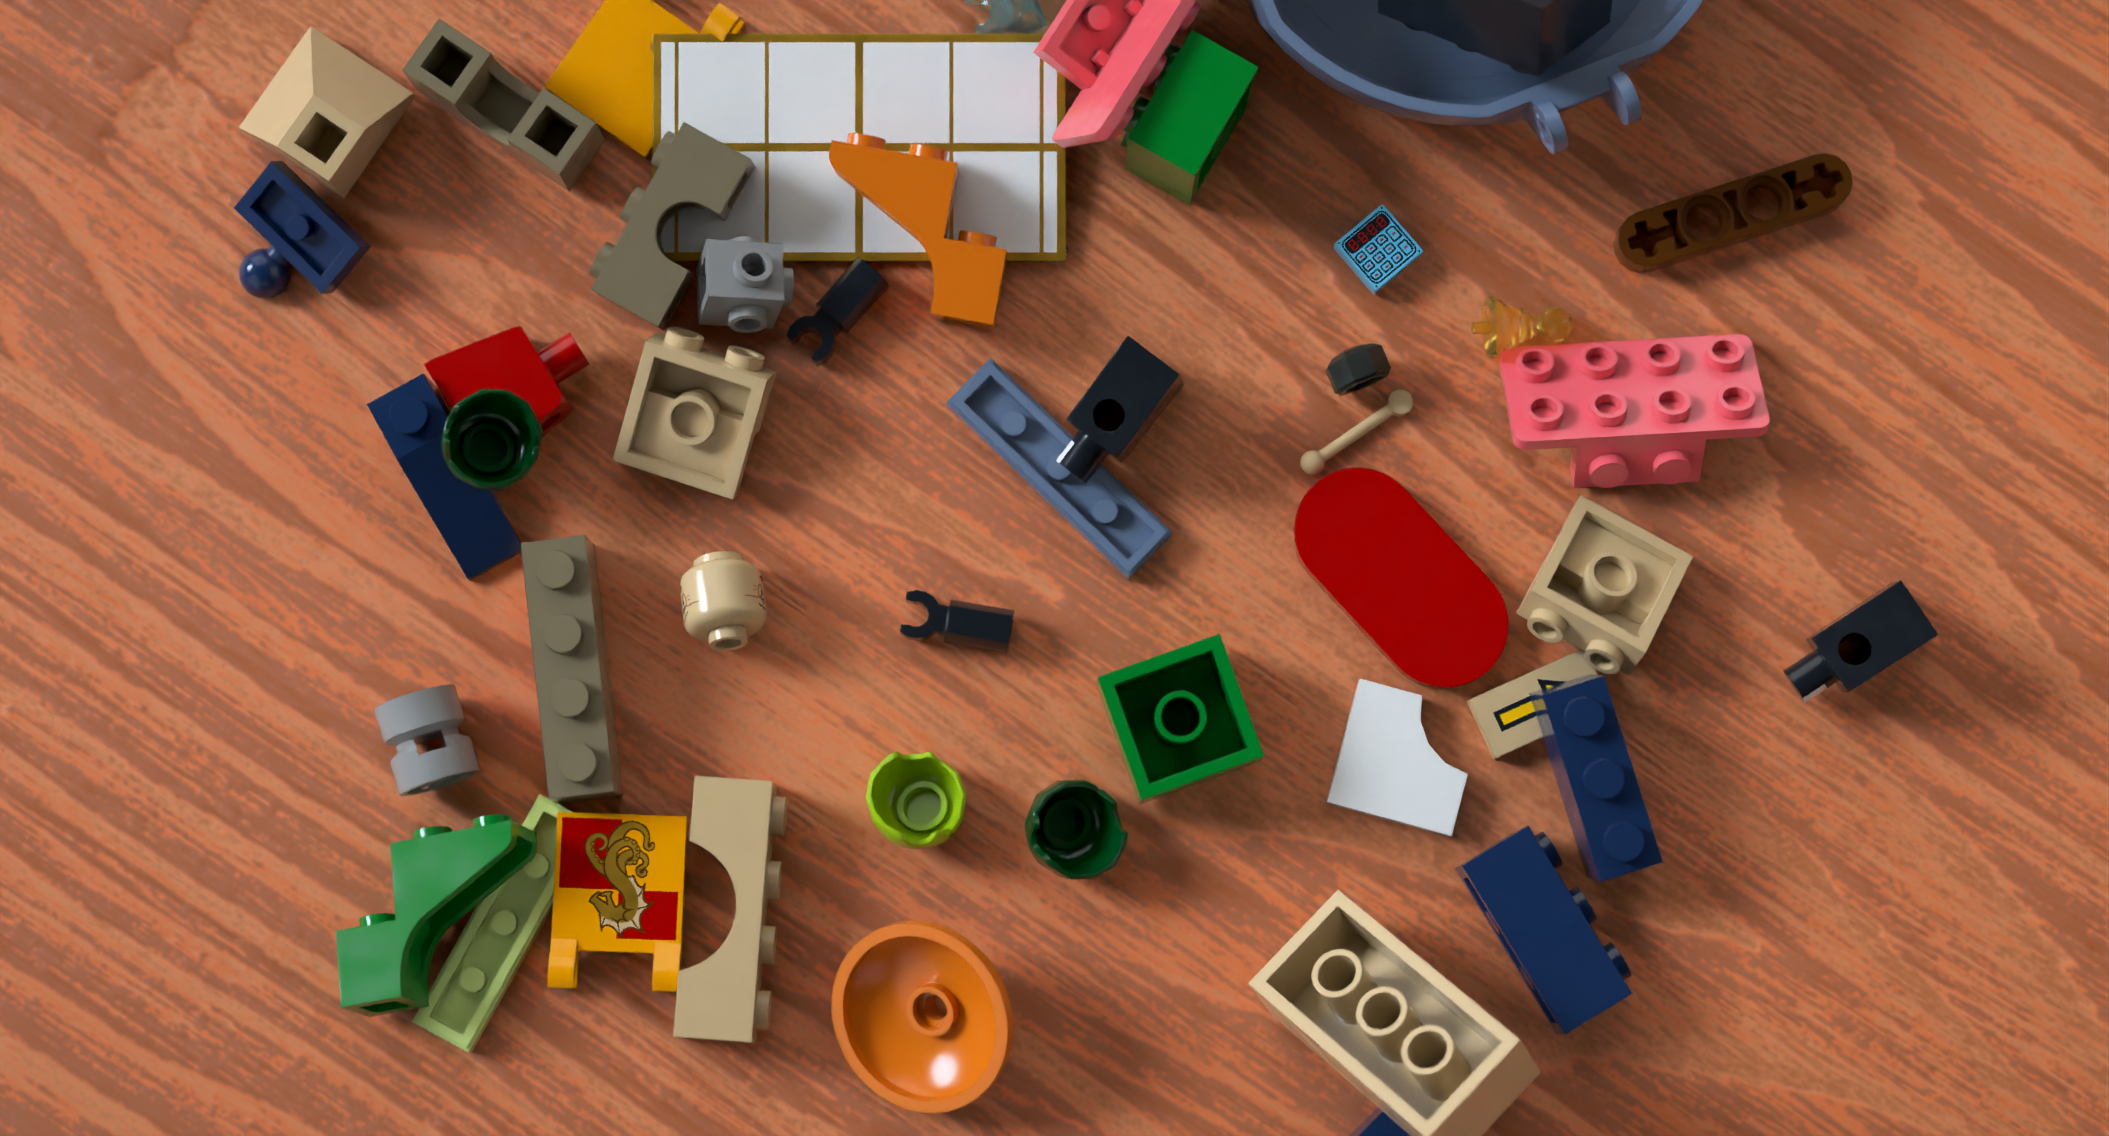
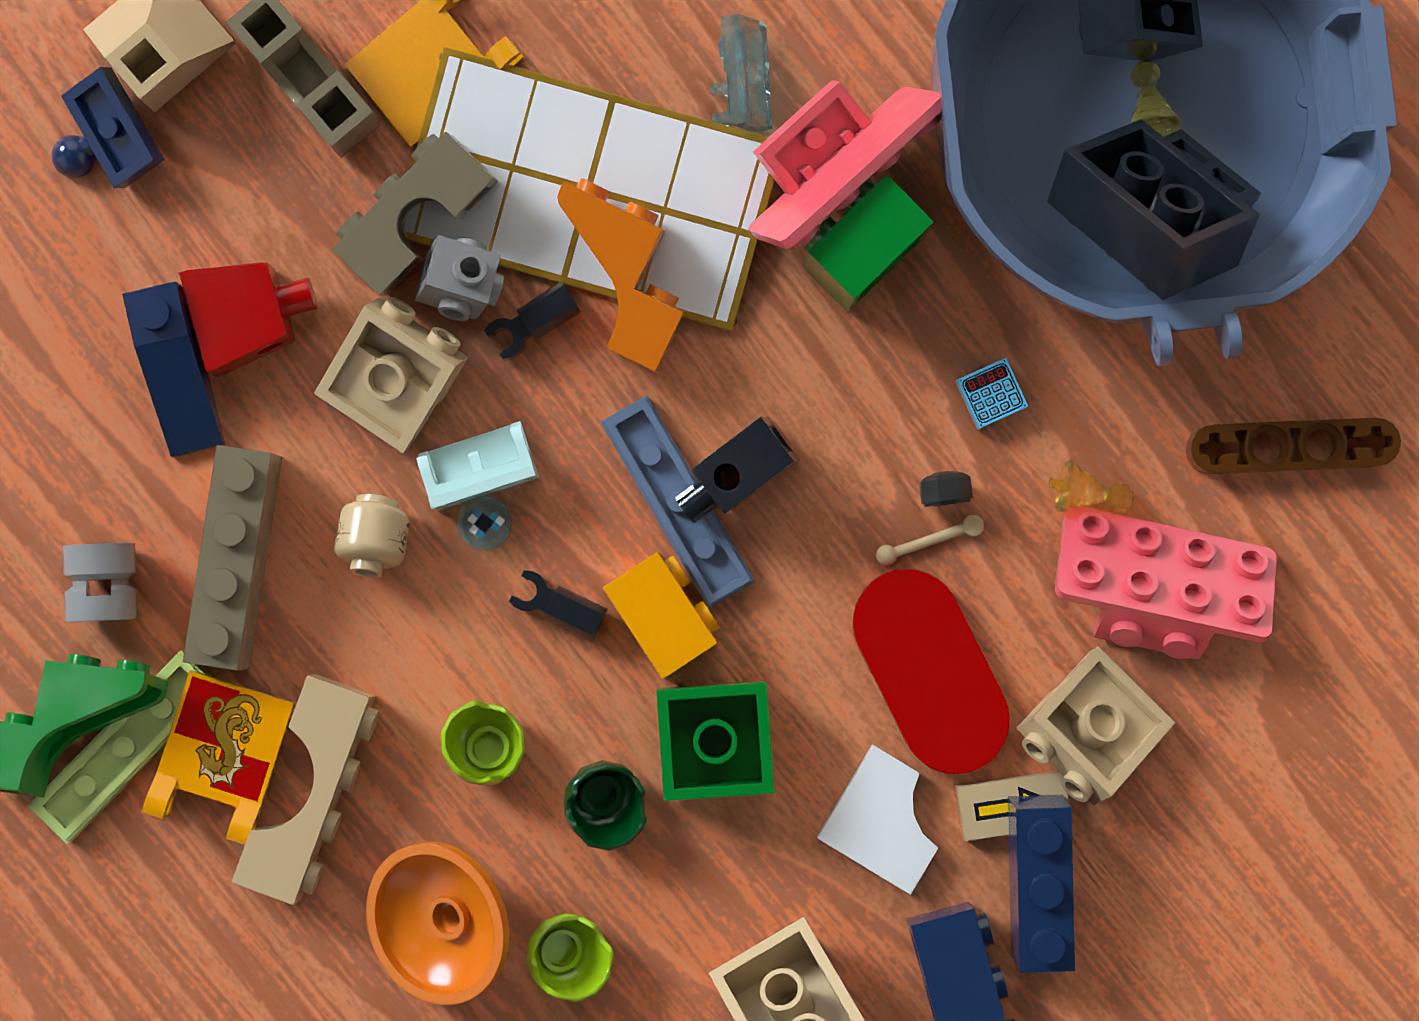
camera: 15 degrees right, 5 degrees up
(491, 439) = (213, 355): dark green hair -> none
(822, 492) = (477, 466): none -> light aqua hinge
(847, 553) = (484, 523): none -> clear light blue tile
(1078, 596) = (661, 614): none -> light orange brick
(1083, 1015) = (569, 957): none -> lime hair
(1888, 629) = (1317, 835): black torso -> none

